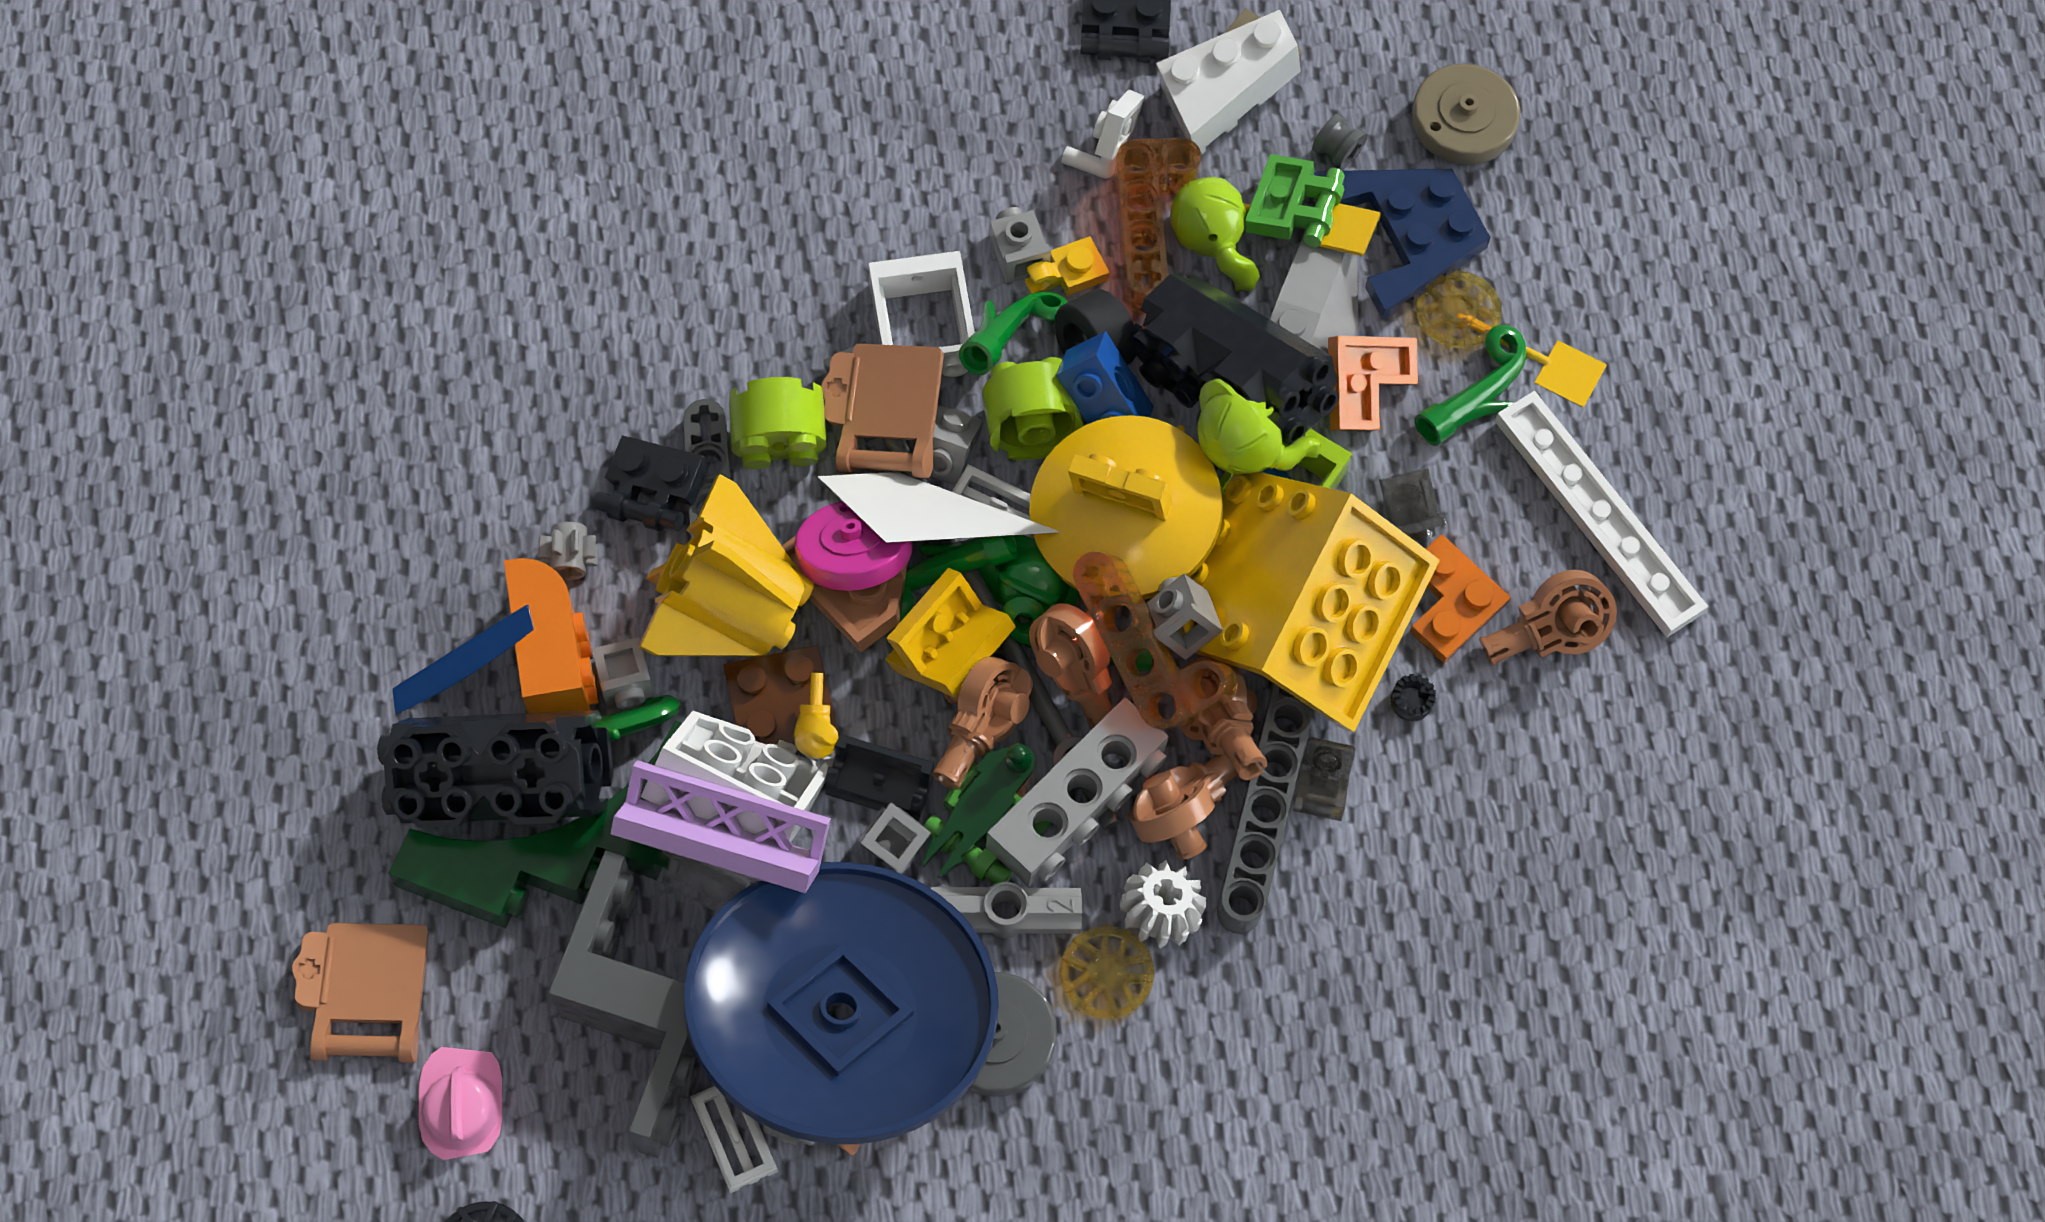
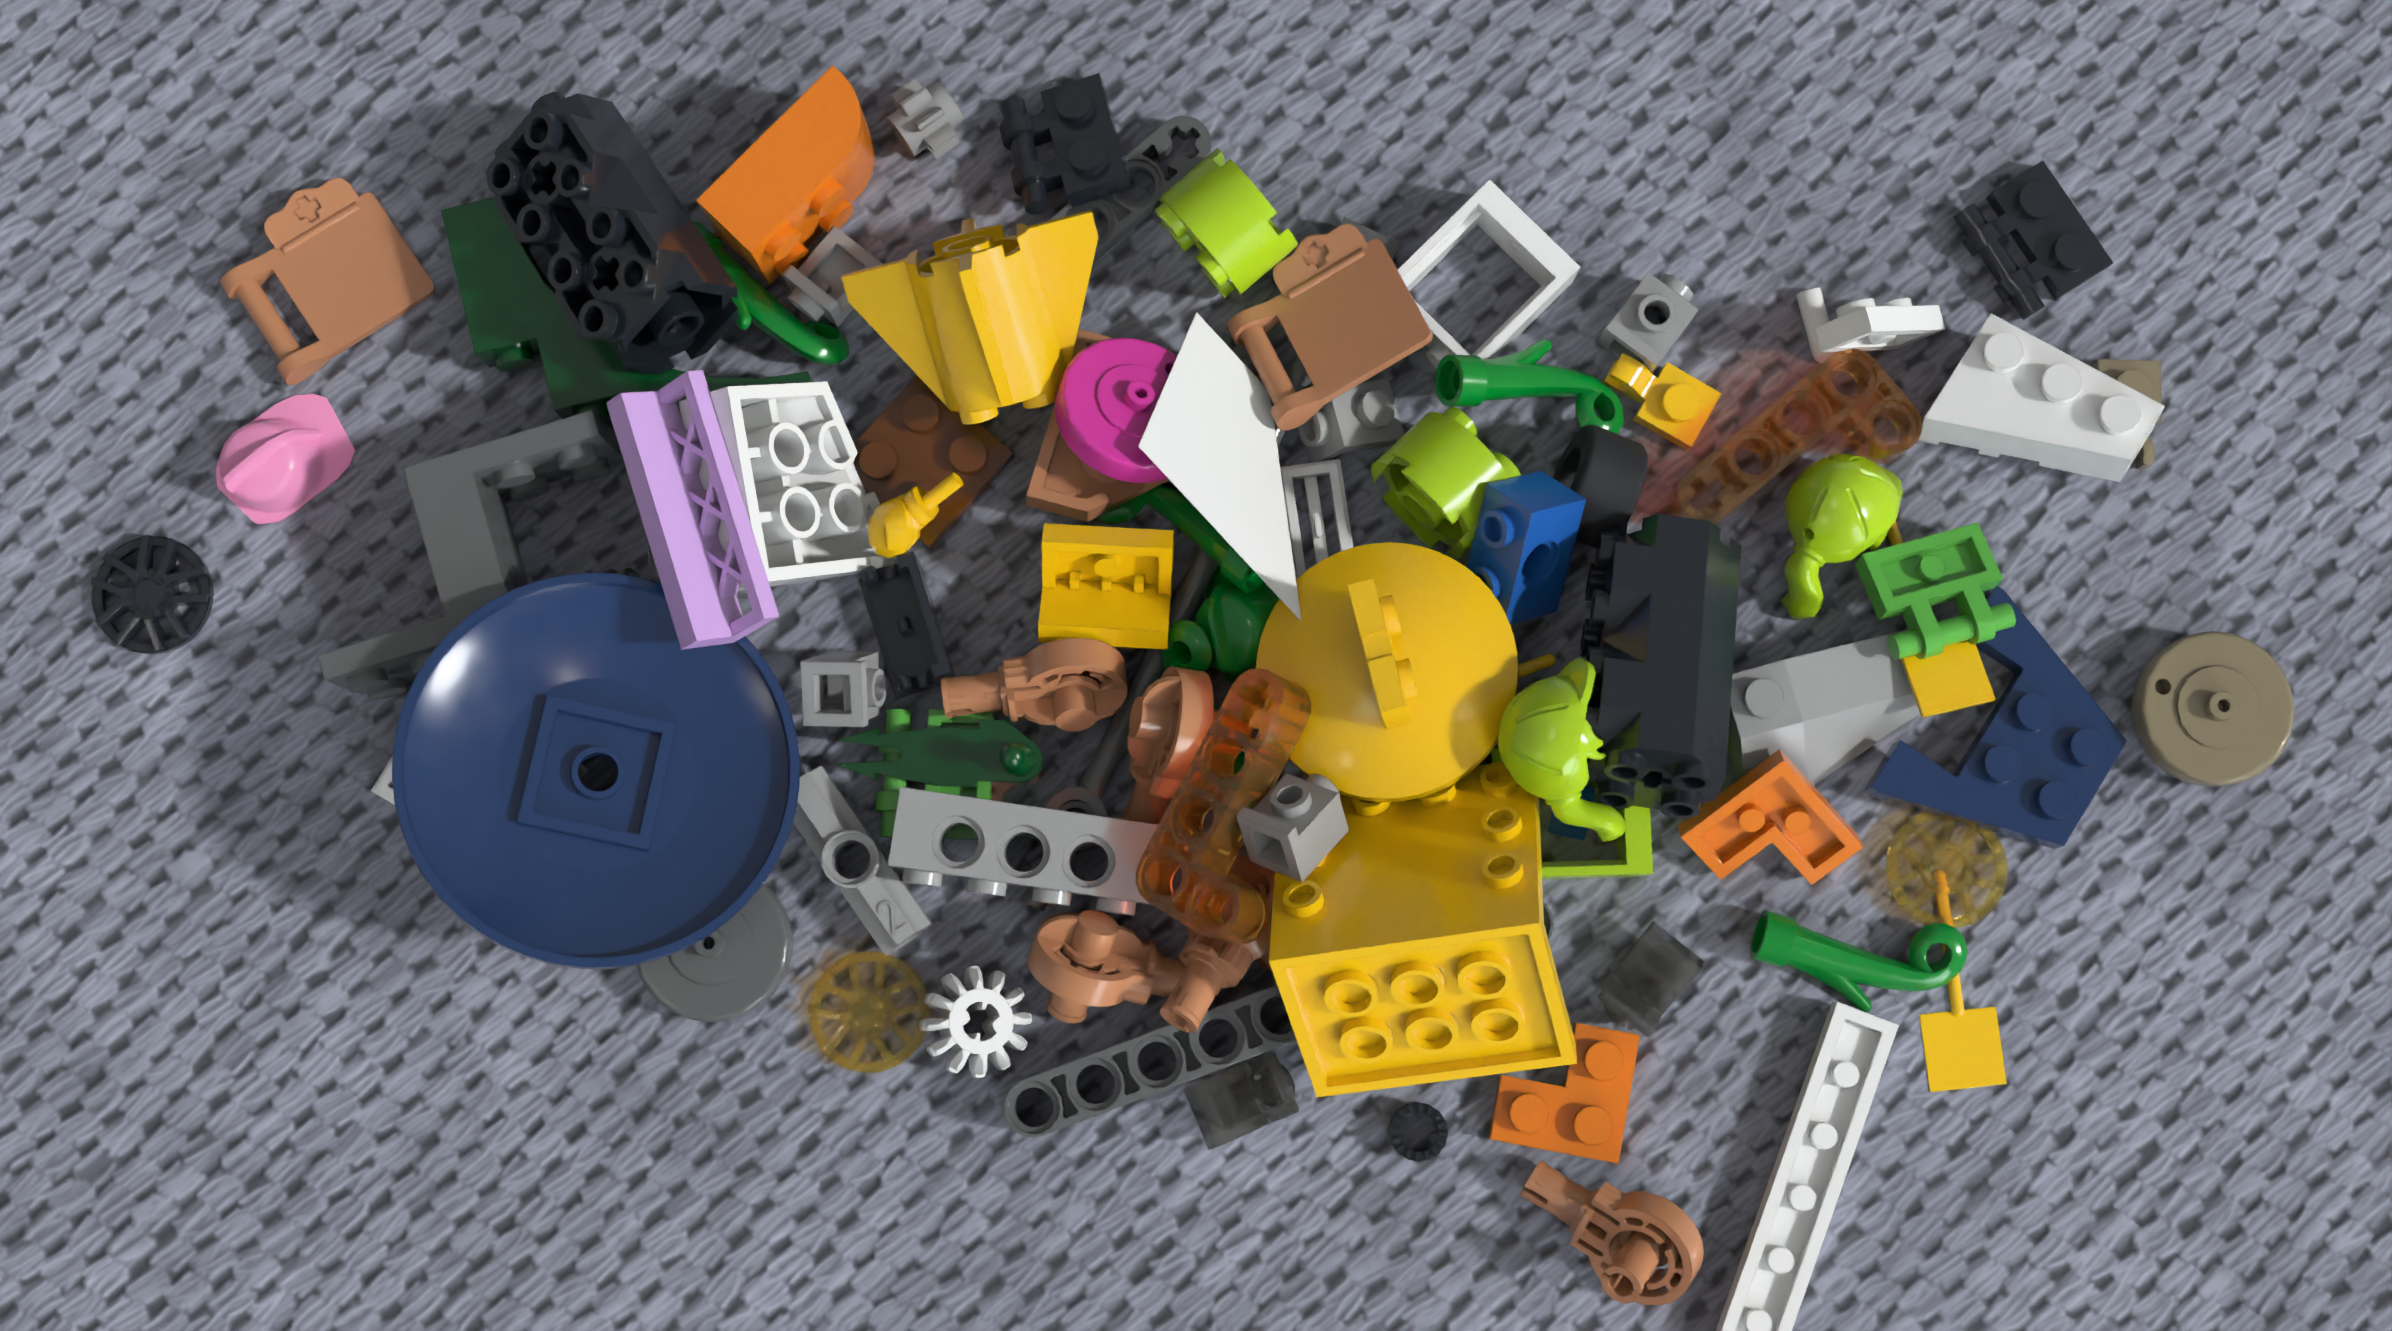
camera: 60 degrees right, 15 degrees up
(463, 660) = (713, 108): blue sticker -> none
(1339, 141) = (2060, 589): dark grey wheel -> none

